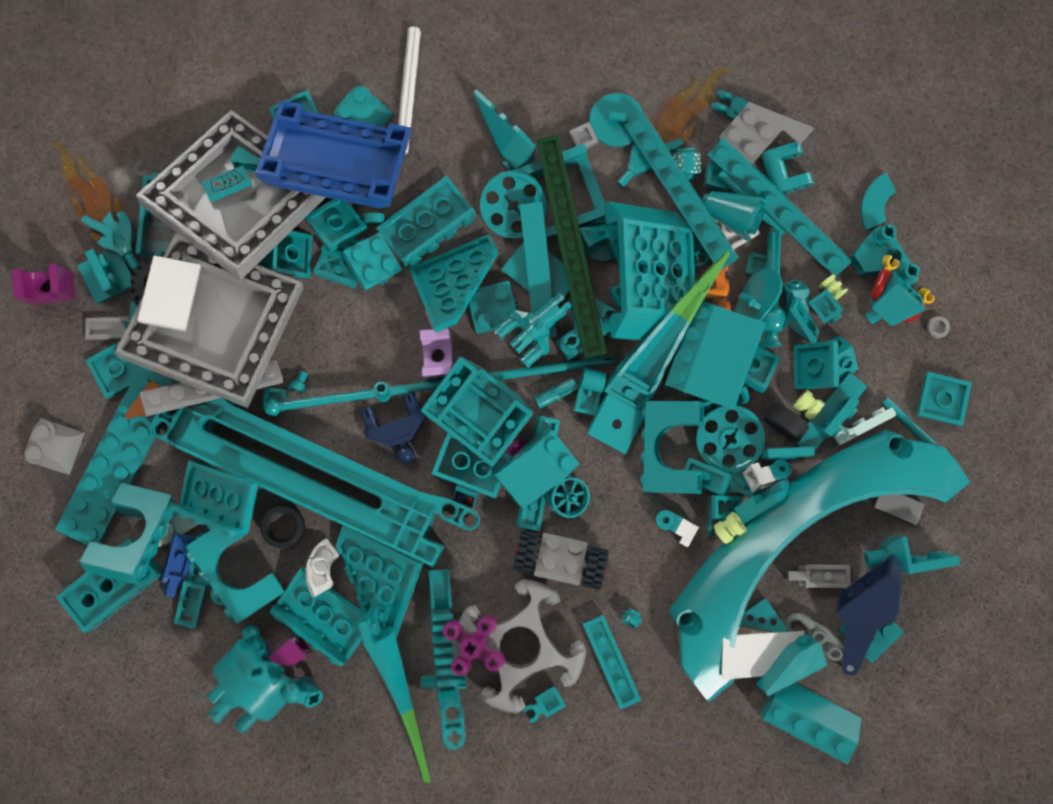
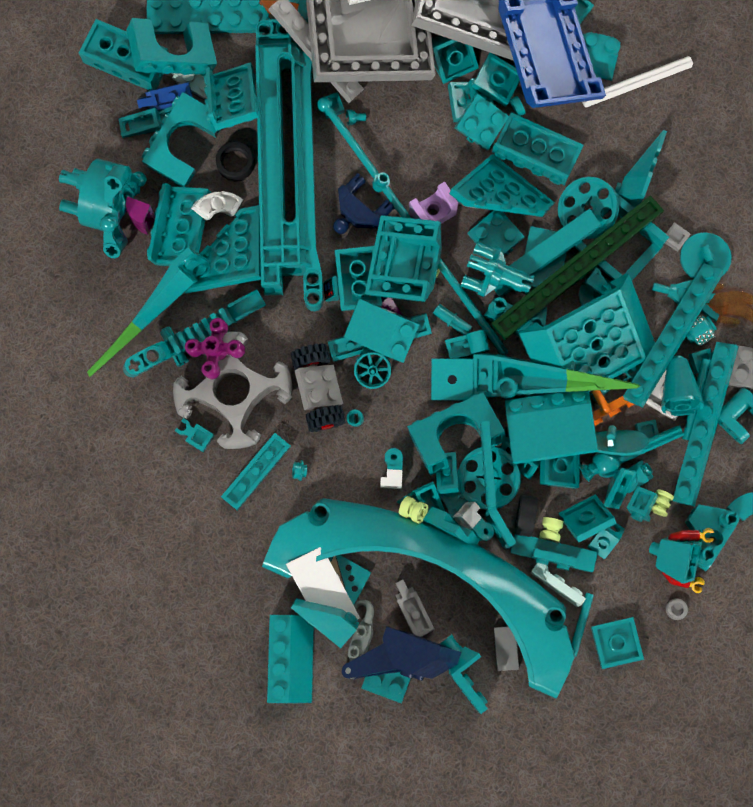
camera: 60 degrees right, 5 degrees down
(605, 541) = (351, 419): none -> teal hinge
(654, 376) = (507, 387): none -> teal tile
(728, 435) = (488, 465): none -> teal tile

